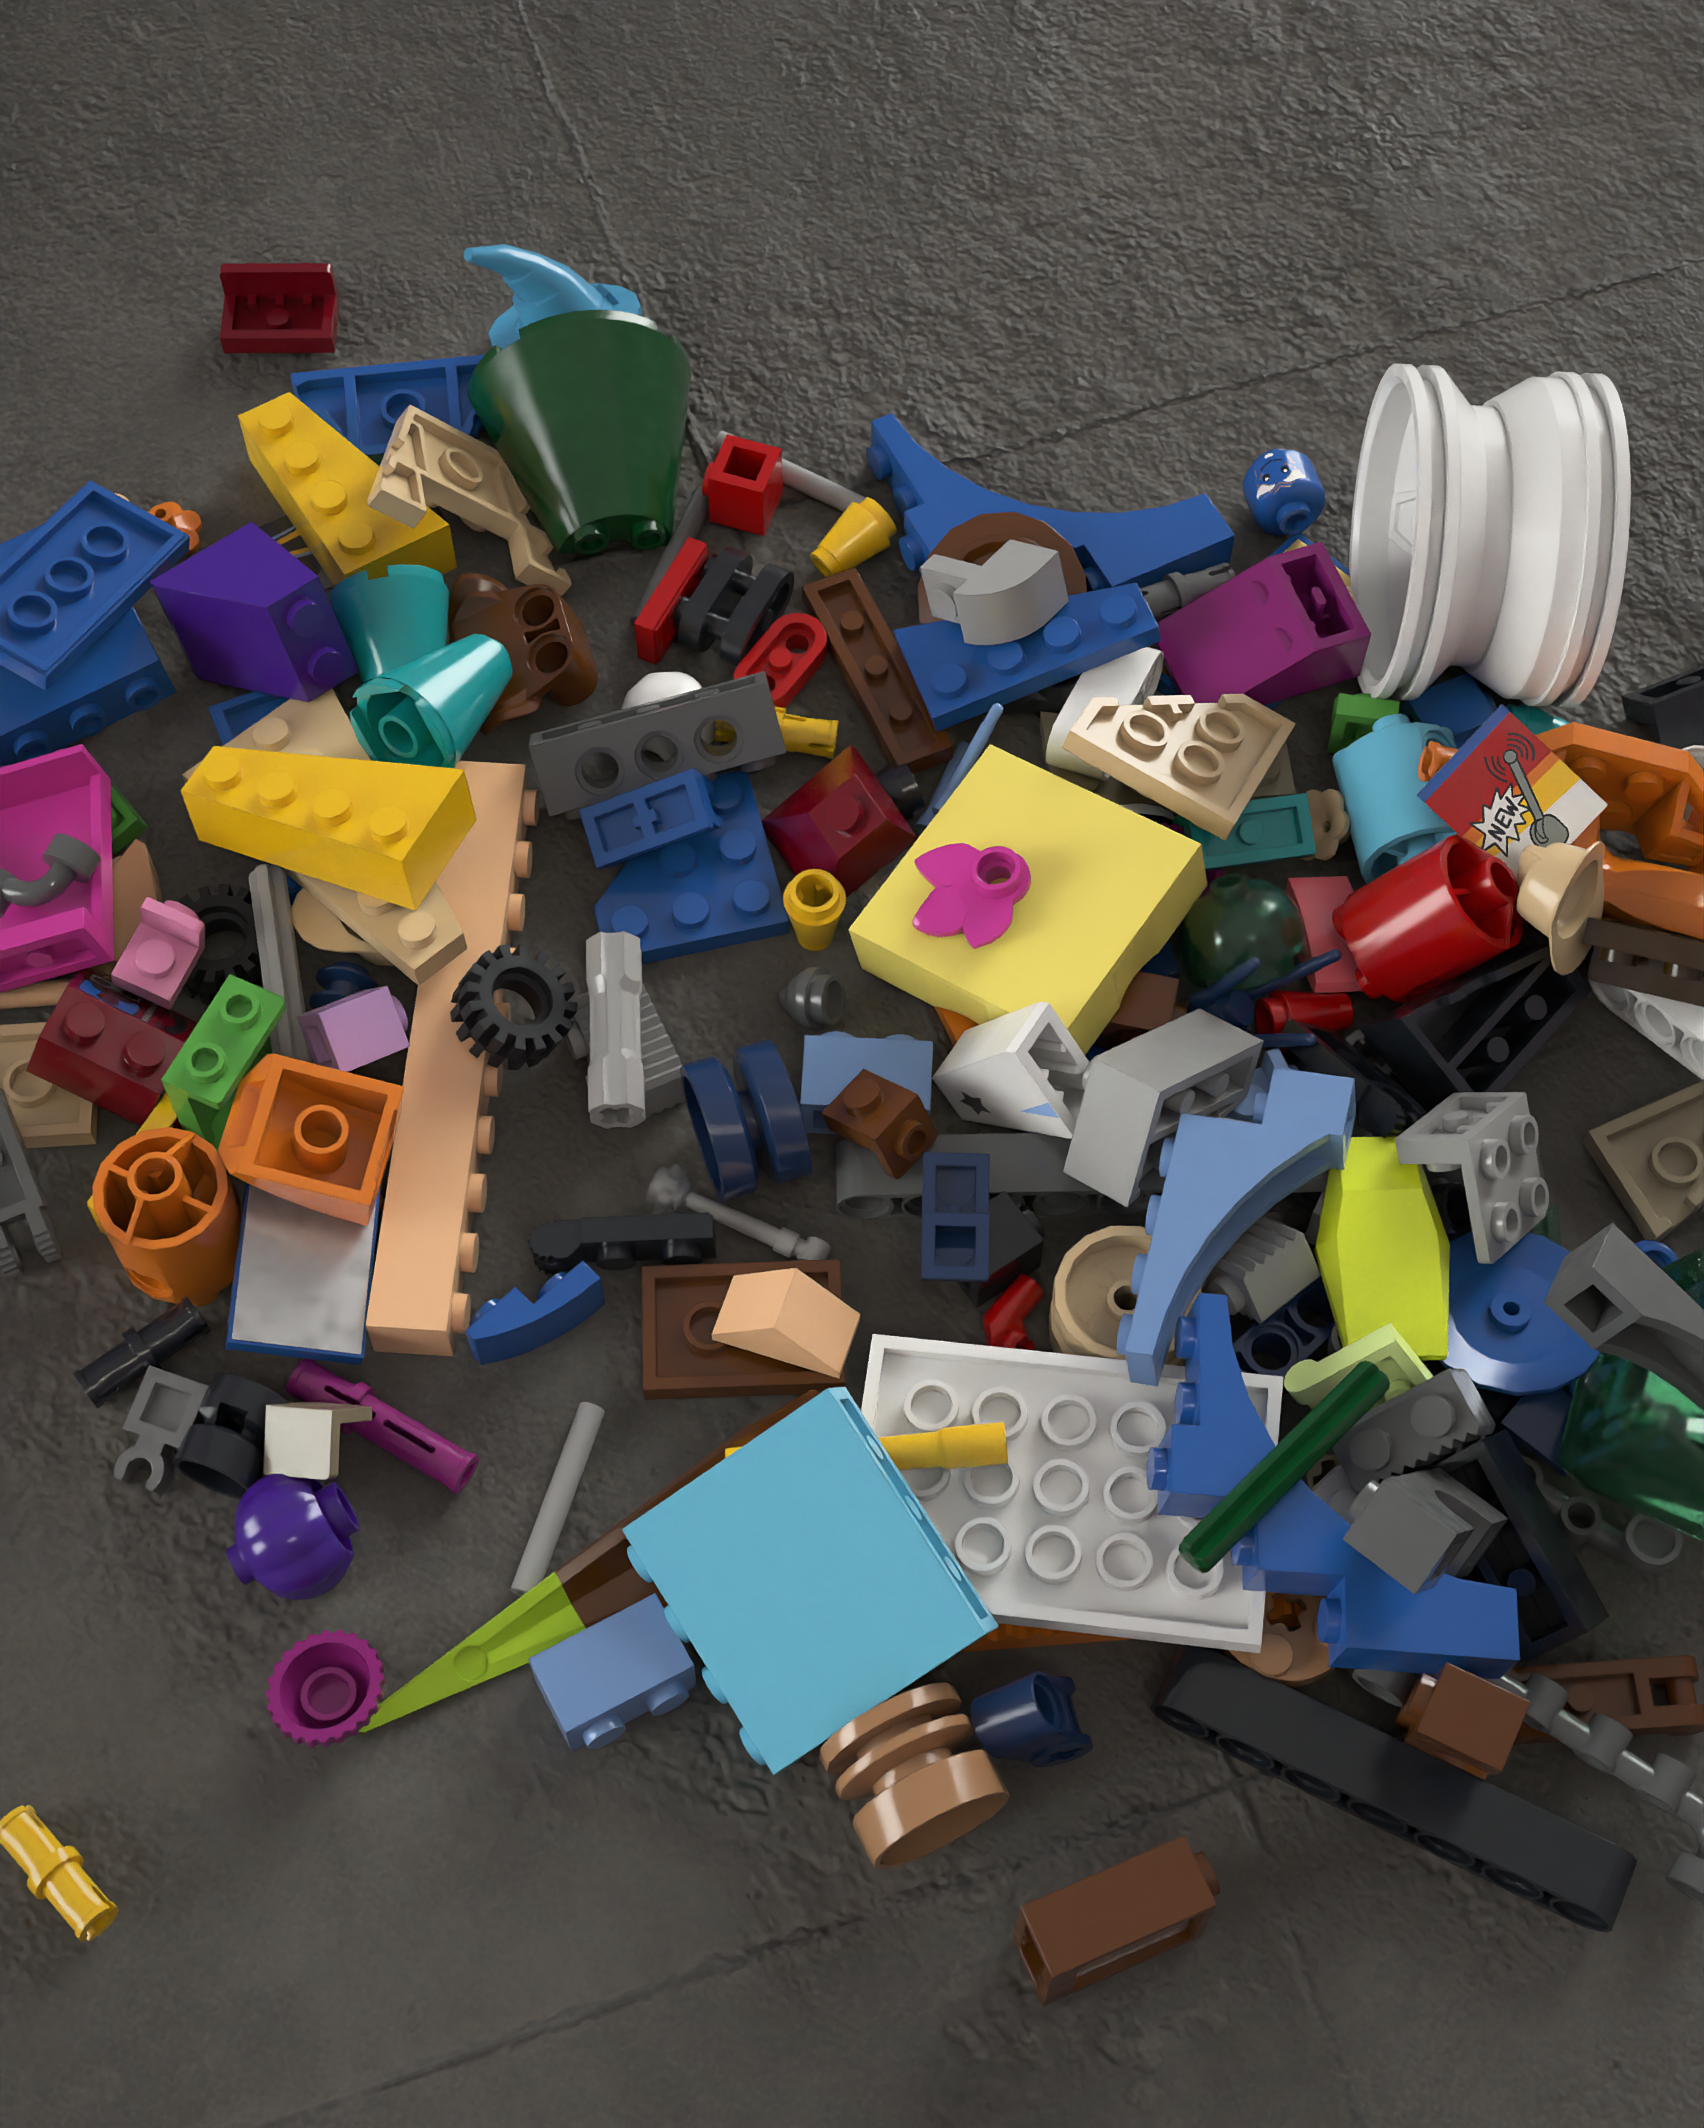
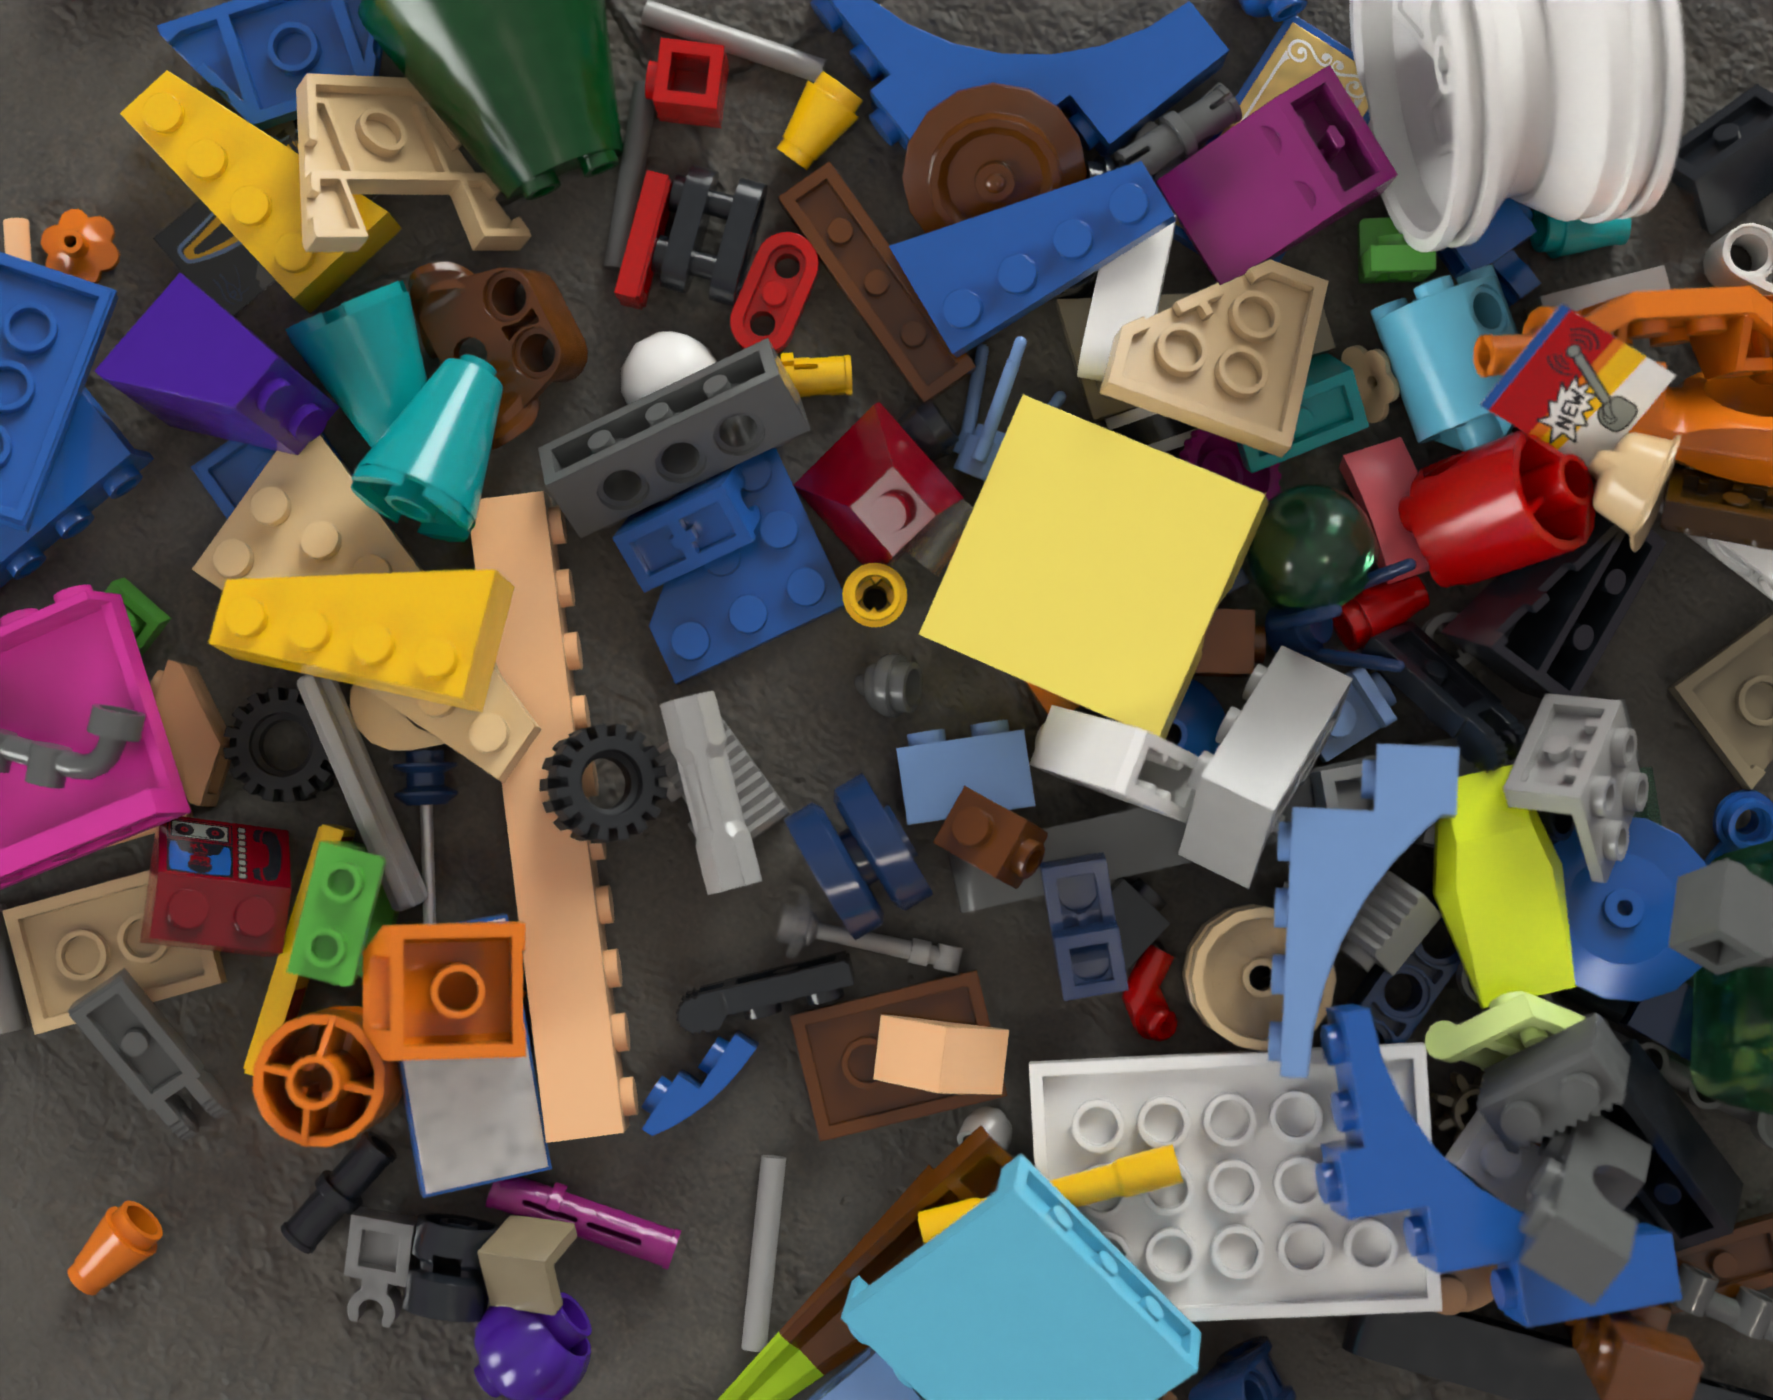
camera: 10 degrees left, 25 degrees up
(161, 952) = (234, 794): bright pink bracket -> none
(355, 1029) = (452, 837): lavender brick -> none
(964, 891) = (1031, 593): dark pink plate -> none
(1000, 599) = (1005, 214): light grey brick -> none
(1283, 1467) = (1450, 1176): dark green axle -> none

